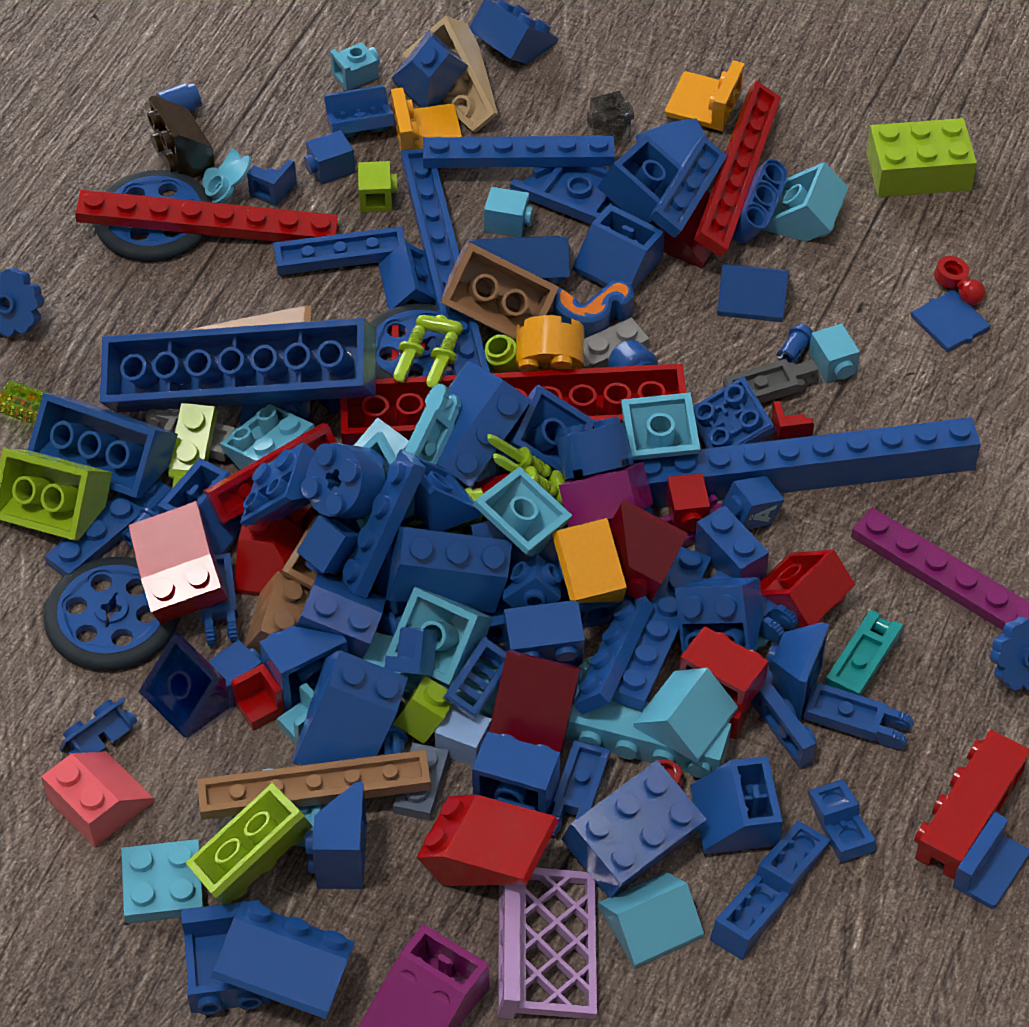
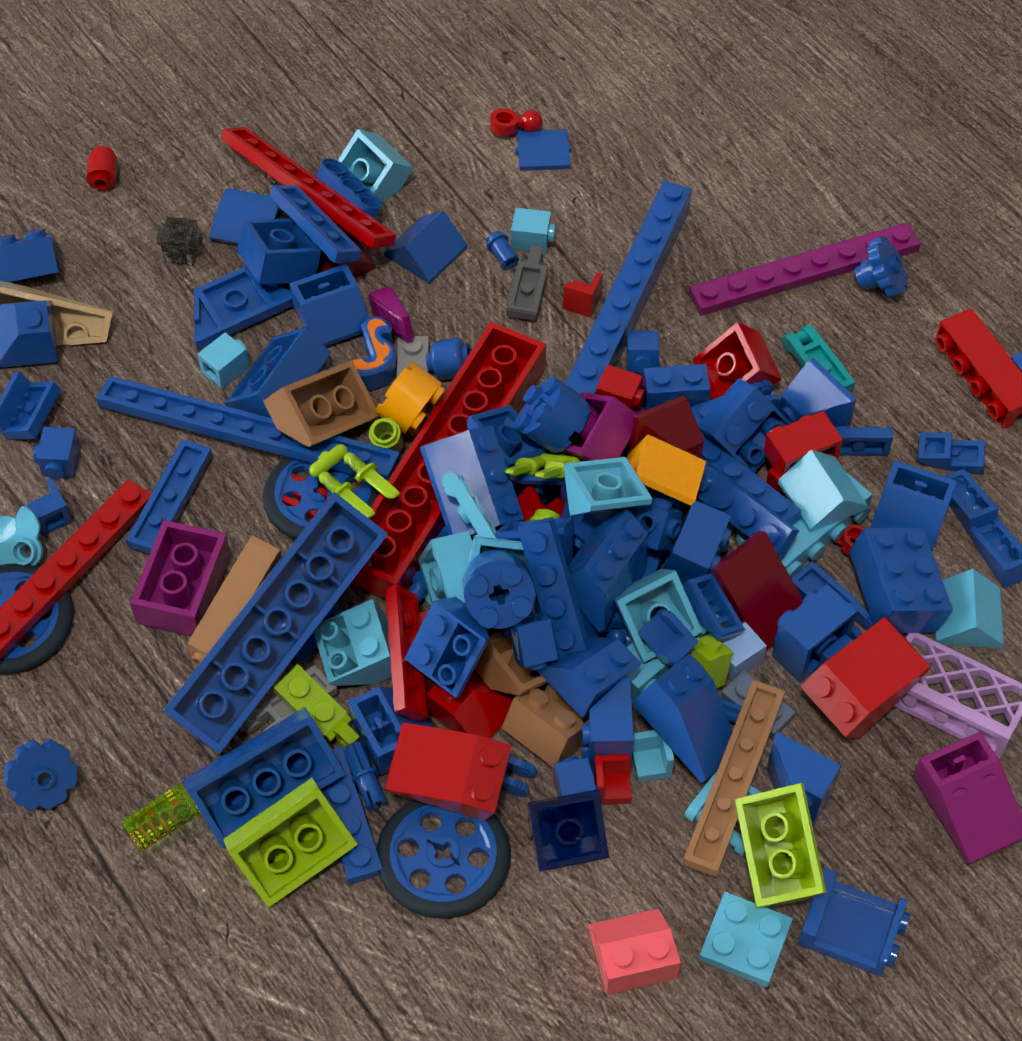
camera: 60 degrees left, 5 degrees up
(108, 720) = (562, 905): blue hinge -> none
(255, 286) = (180, 577): none -> magenta brick
(283, 959) = (897, 875): blue slope -> none
(376, 186) = (119, 436): lime brick -> none
(406, 277) = (238, 466): blue panel -> none
(422, 122) = (80, 369): light orange bracket -> none
(518, 151) = (168, 319): blue plate -> none
(648, 29) = (101, 168): none -> red brick
(648, 297) = (388, 306): none -> magenta slope
(661, 426) = (550, 356): medium azure slope -> none
(707, 98) = (210, 170): light orange bracket -> none
(732, 417) = (554, 322): blue tile -> none
(858, 716) = (876, 392): blue hinge -> none
(921, 157) = (381, 77): lime brick -> none

